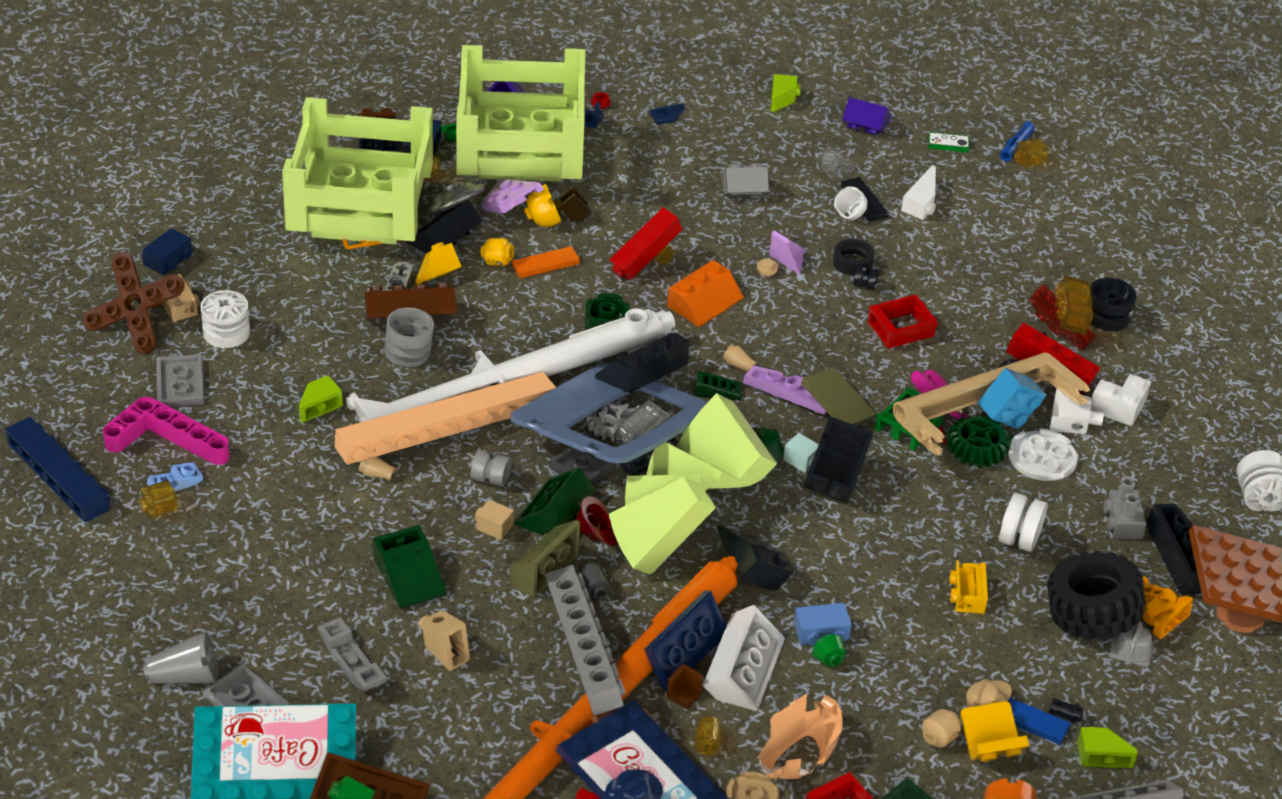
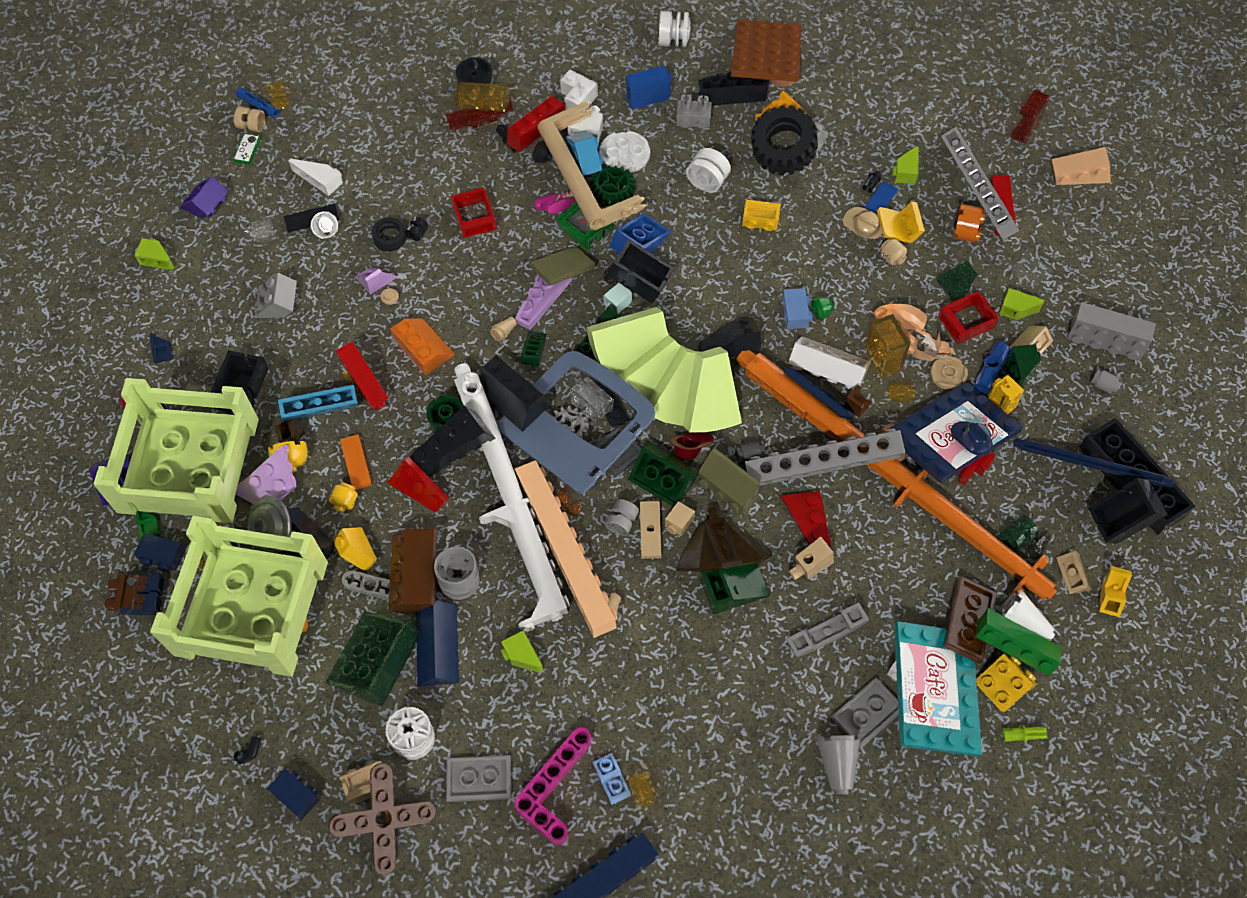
camera: 80 degrees left, 20 degrees up
(213, 224) = (250, 753): none -> black arm
(311, 294) = (374, 657): none -> clear green slope
(331, 339) = (437, 645): none -> dark blue slope
(458, 558) = (720, 546): none -> dark brown panel
(476, 496) = (650, 520): none -> tan tile
(504, 430) = (566, 504): none -> clear orange arm
(510, 644) = (809, 515): none -> red wing
(515, 302) = (417, 485): none -> red wing
(568, 313) = (452, 441): none -> black wedge
(608, 216) = (318, 403): none -> dark azure brick
(627, 163) = (237, 373): none -> black piece
(760, 694) = (887, 346): none -> clear yellow brick
(902, 469) = (642, 231): none -> blue slope
(987, 134) = (249, 119): none -> tan wheel
(1148, 459) = (648, 87): none -> blue brick

